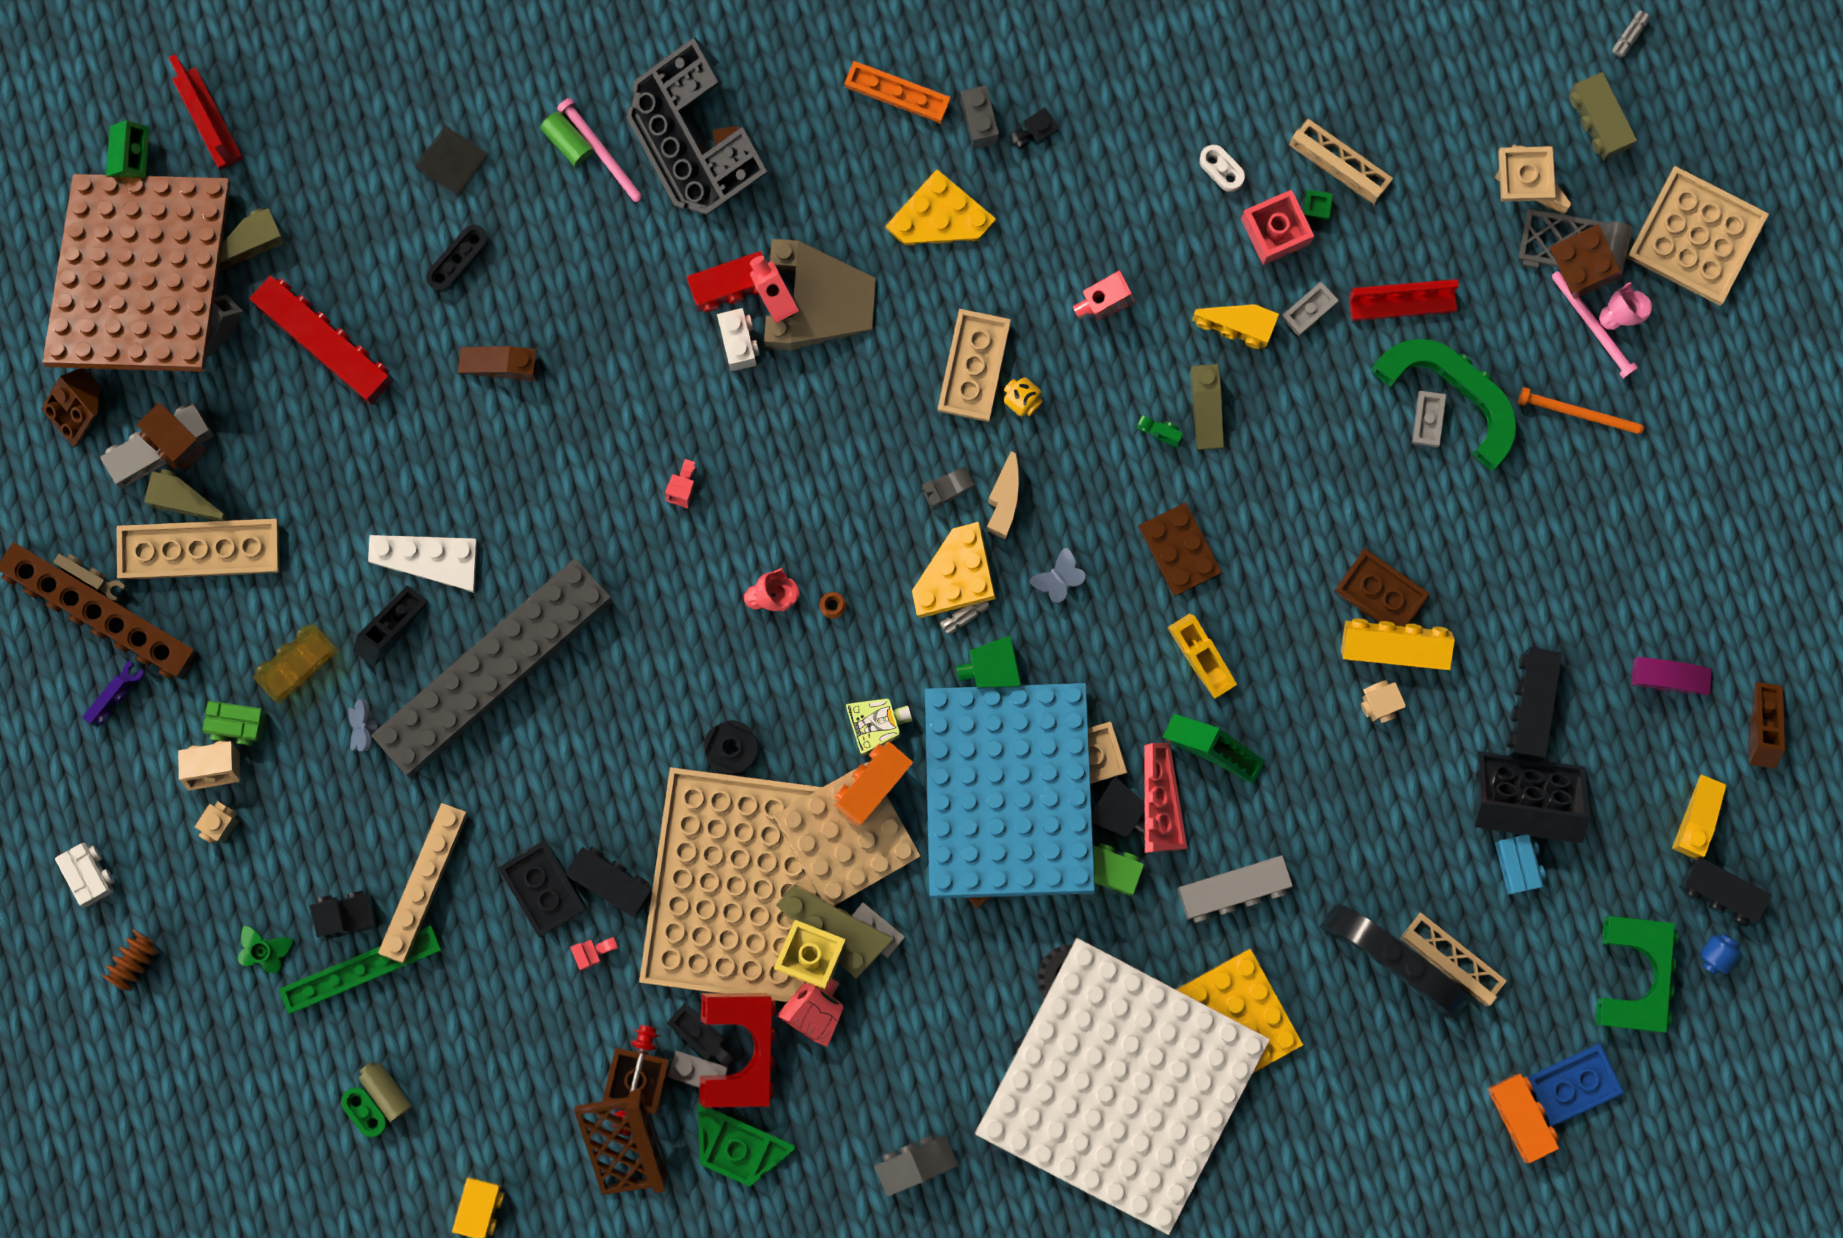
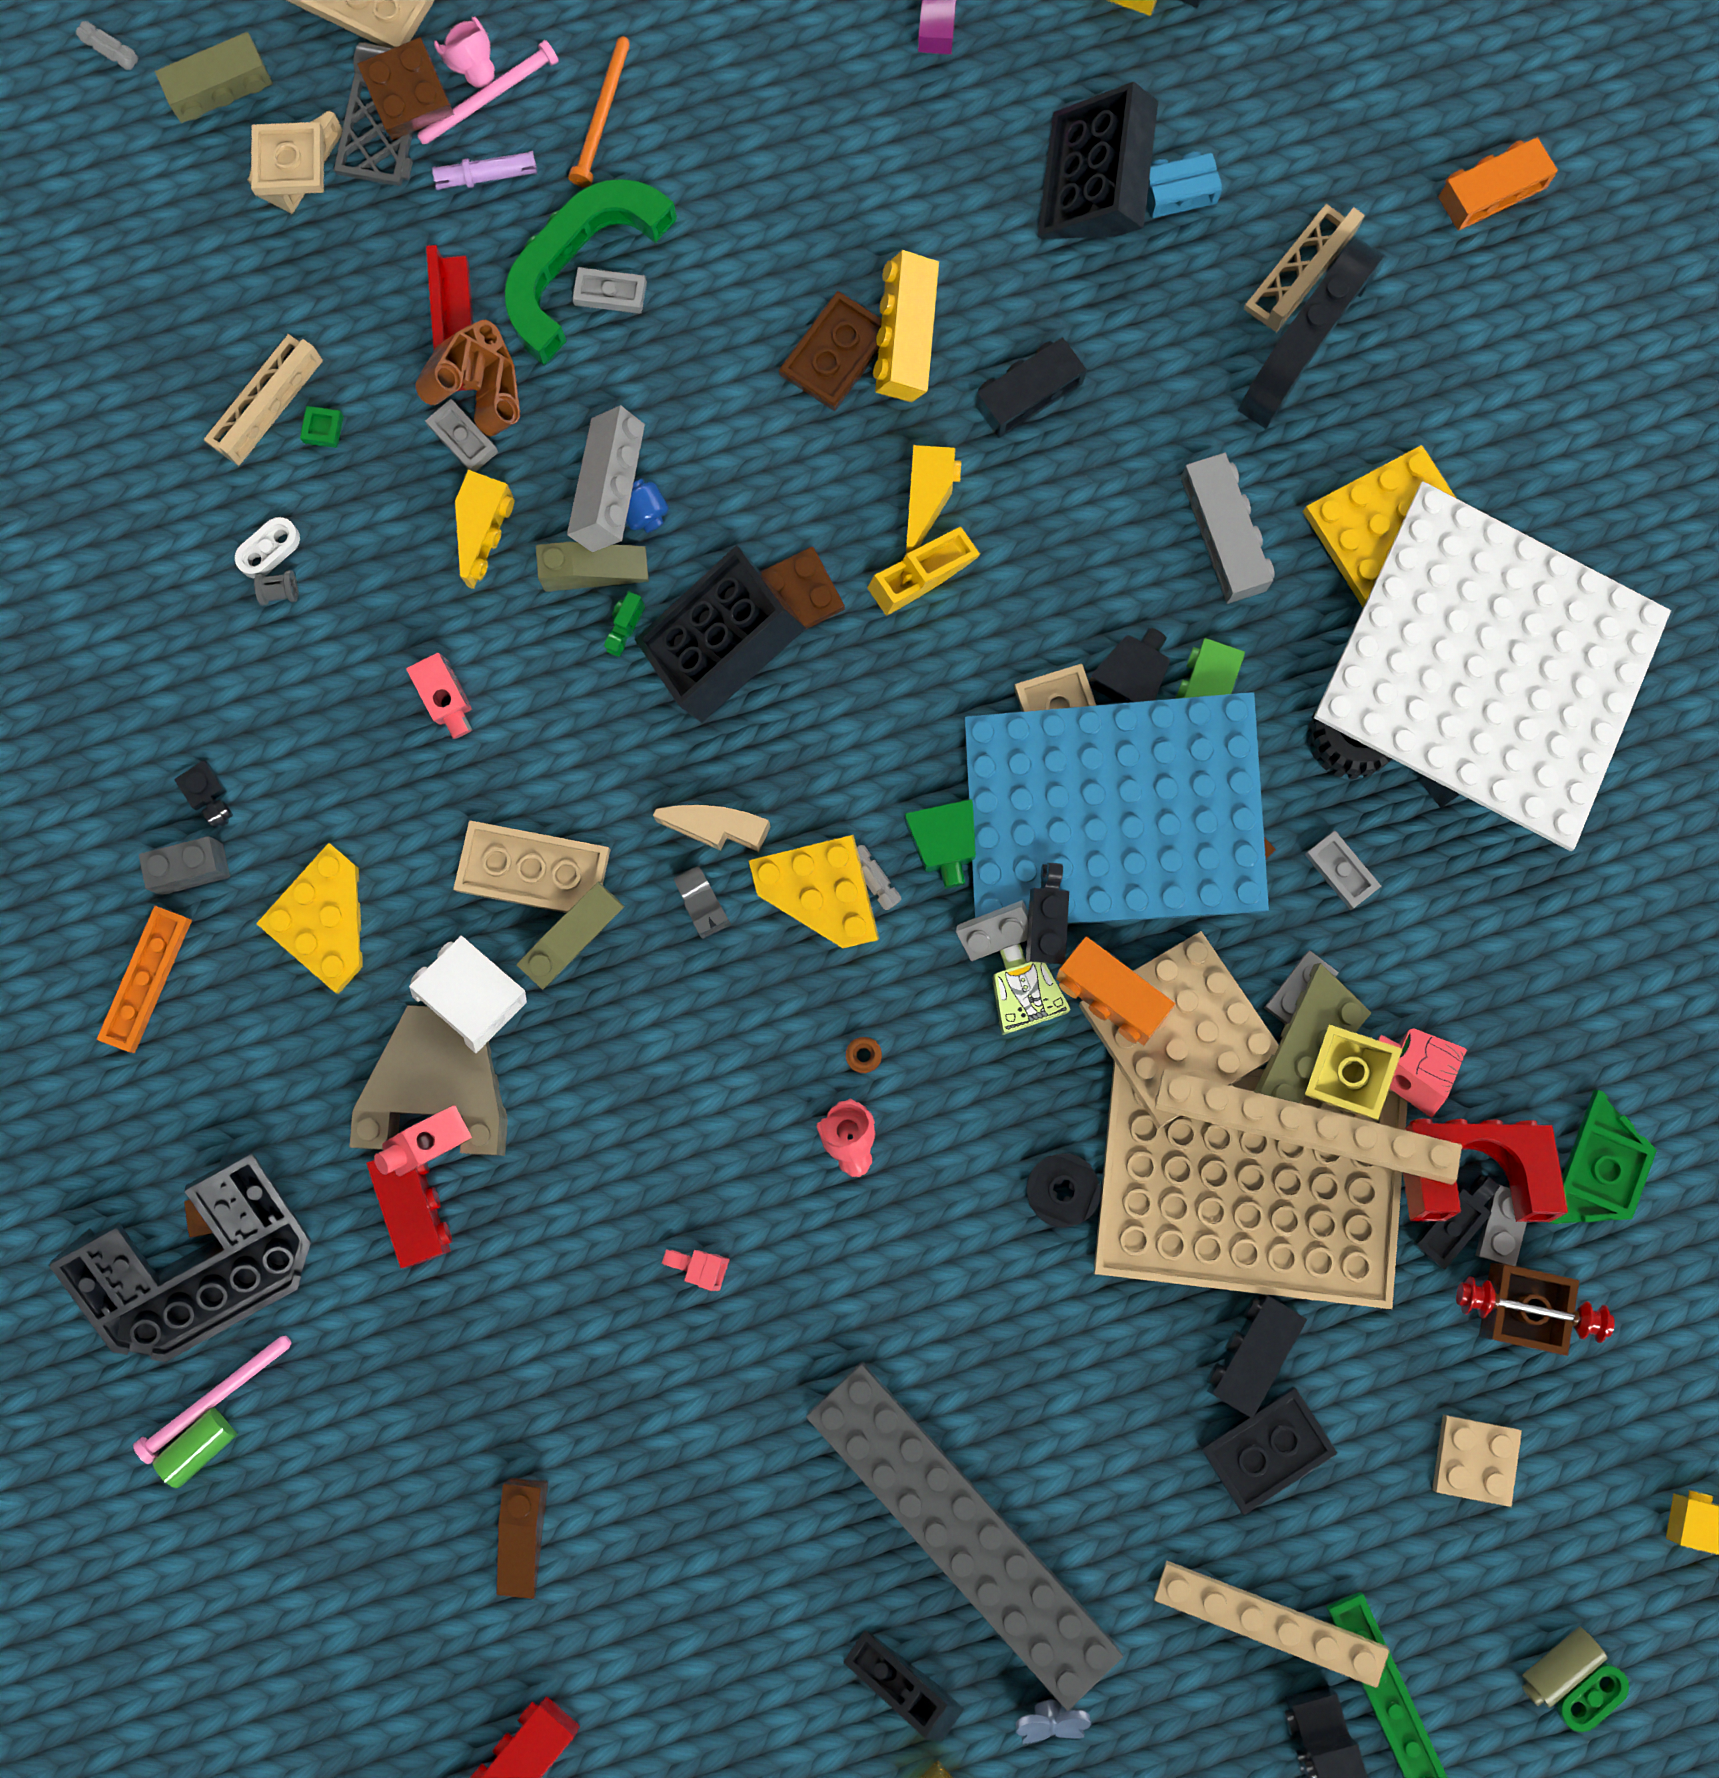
camera: 85 degrees left, 0 degrees up
(433, 558) = (805, 1620): white wing -> none
(451, 160) = (220, 1618): clear smoke tile -> none
(459, 247) = (349, 1602): black plate -> none
(530, 1041) = (1477, 1460): none -> tan plate
(587, 954) = (1355, 1382): coral piece -> none
(643, 1136) = (1619, 1296): reddish brown fence -> none
(736, 339) = (493, 1194): white brick -> none
(770, 917) = (1309, 1127): none -> tan plate
(882, 319) = (468, 992): none -> white panel
(915, 1164) = (1619, 927): dark grey brick -> none
(921, 702) = (994, 930): none -> light grey plate
(922, 392) = (570, 935): none -> olive slope
(927, 736) = (1048, 918): none -> black plate
(965, 964) = (1342, 870): none -> light grey plate
(1023, 397) = (576, 803): yellow head -> none
(1060, 578) = (823, 752): sand blue animal -> none
(1149, 499) = (719, 635): none -> black slope
(1162, 806) = (1123, 617): coral wing -> none
(1190, 175) = (276, 587): none -> dark grey bush
(1213, 746) = (1044, 555): green arch -> none
(1253, 444) = (646, 507): none -> blue head
(1267, 661) = (931, 487): none -> yellow slope
(1270, 415) = (606, 479): none -> light grey brick
(1277, 227) = (350, 473): coral brick -> none
(1350, 739) = (1030, 386): none -> black brick
(1364, 321) = (479, 362): none -> dark orange connector
(1382, 701) = (979, 346): tan brick -> none
(1529, 329) = (484, 170): none -> lavender pin
(1534, 704) = (977, 165): black brick -> none
(1575, 1085) = (1448, 125): blue tile -> none
(1656, 942) = (1351, 33): green arch -> none

